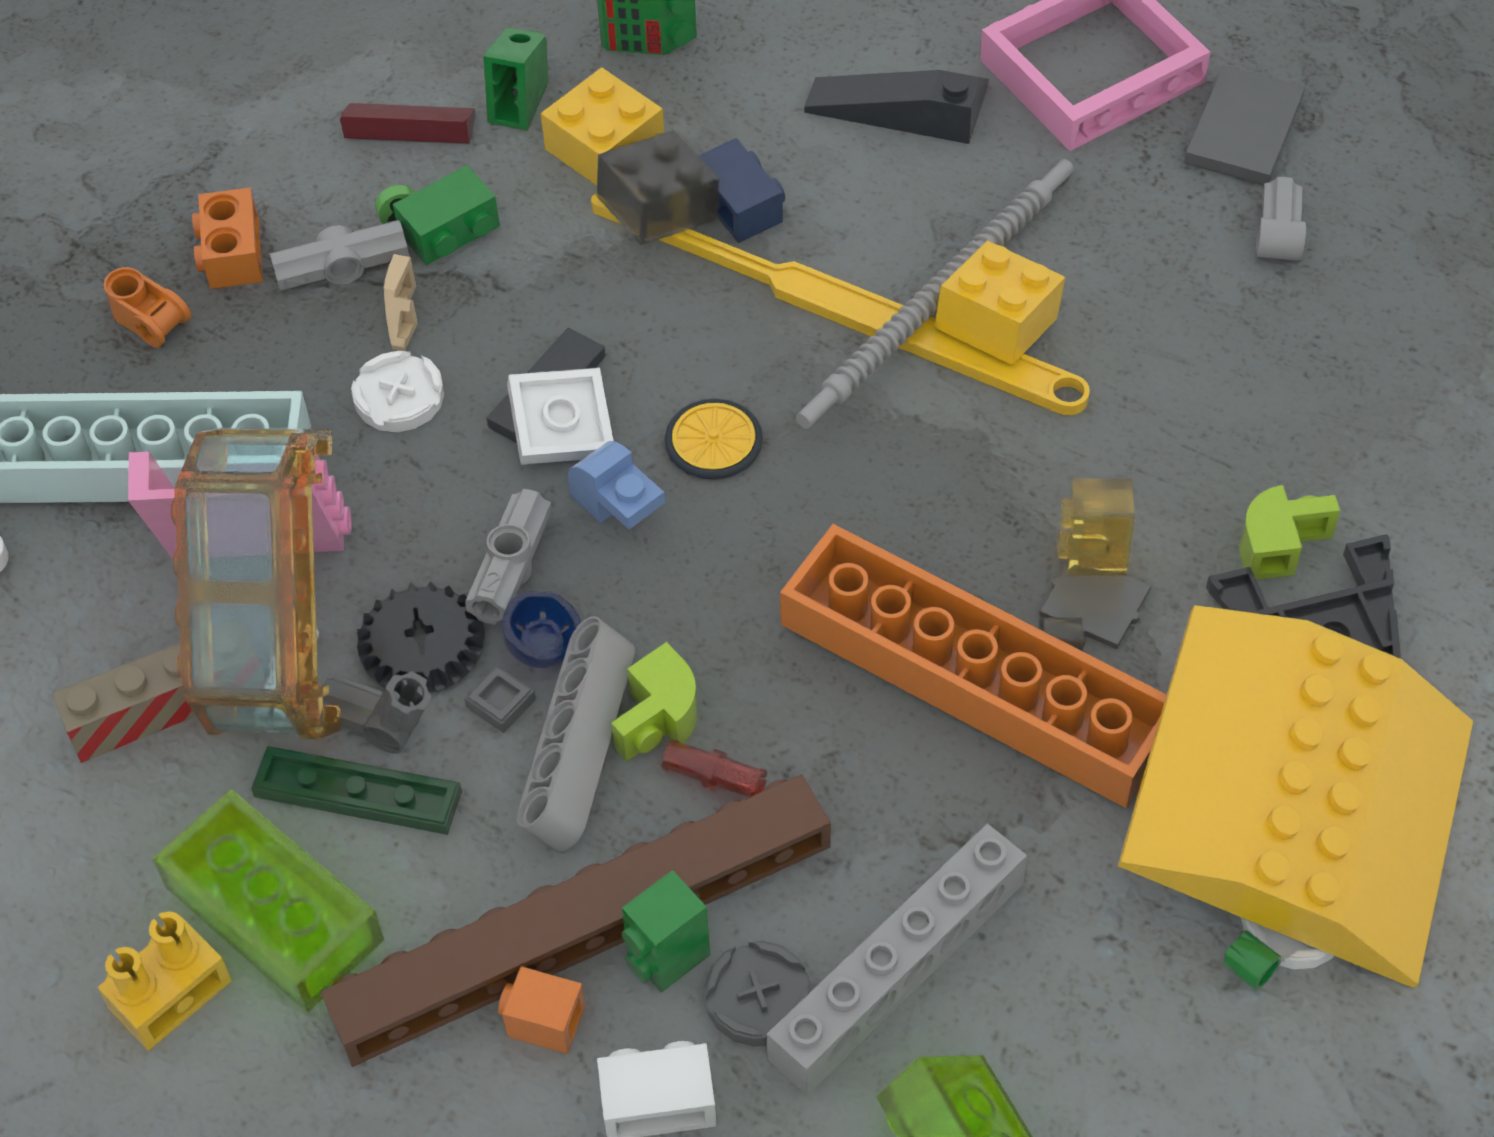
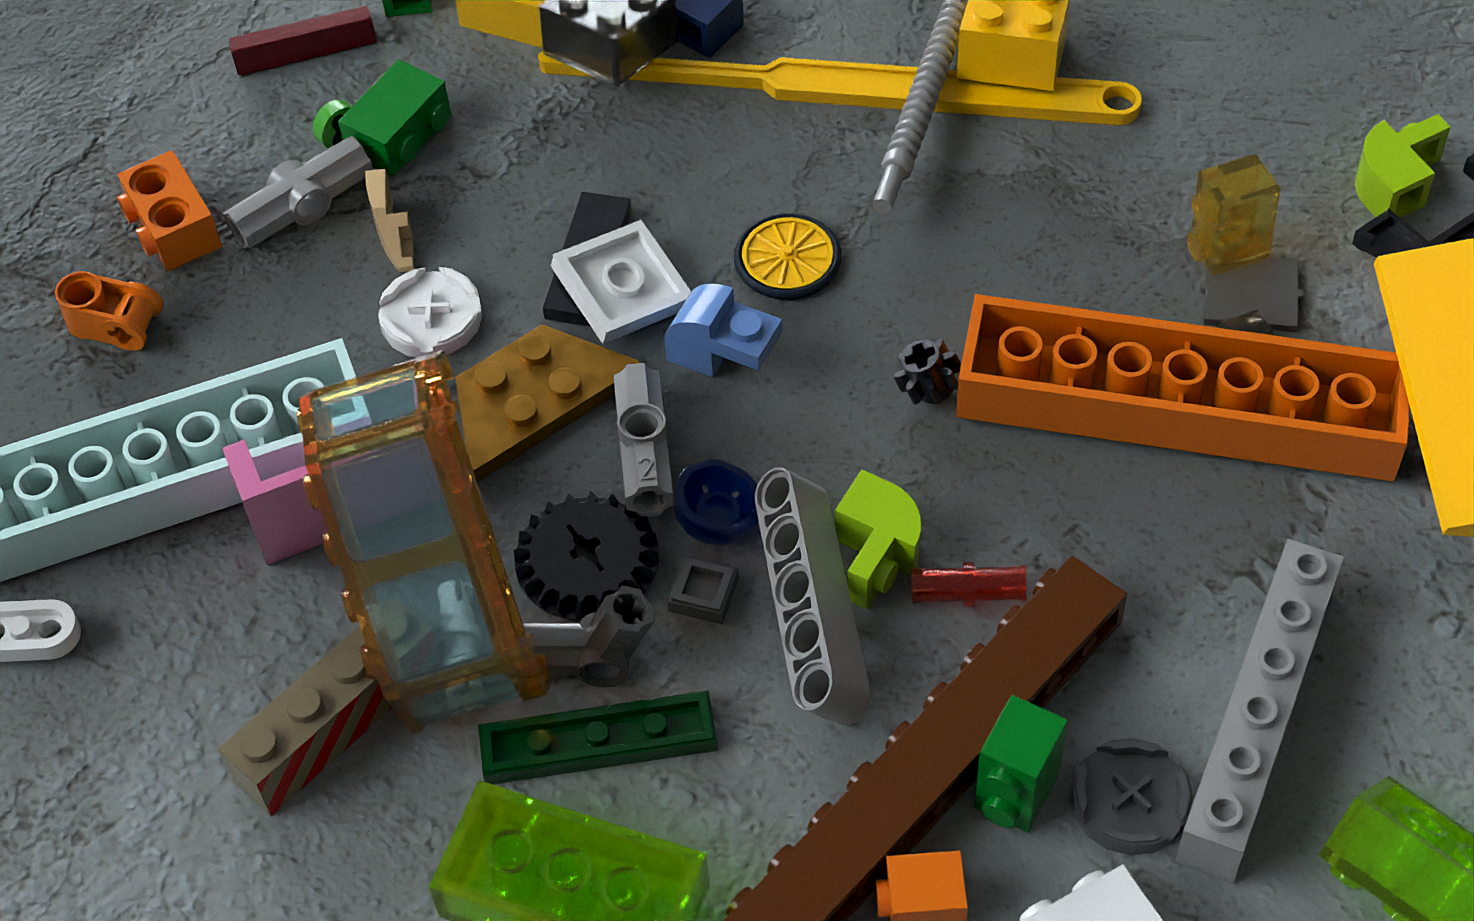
camera: 20 degrees left, 0 degrees up
(442, 488) = (531, 393): none -> pearl gold wing
(767, 575) = (927, 371): none -> black gear

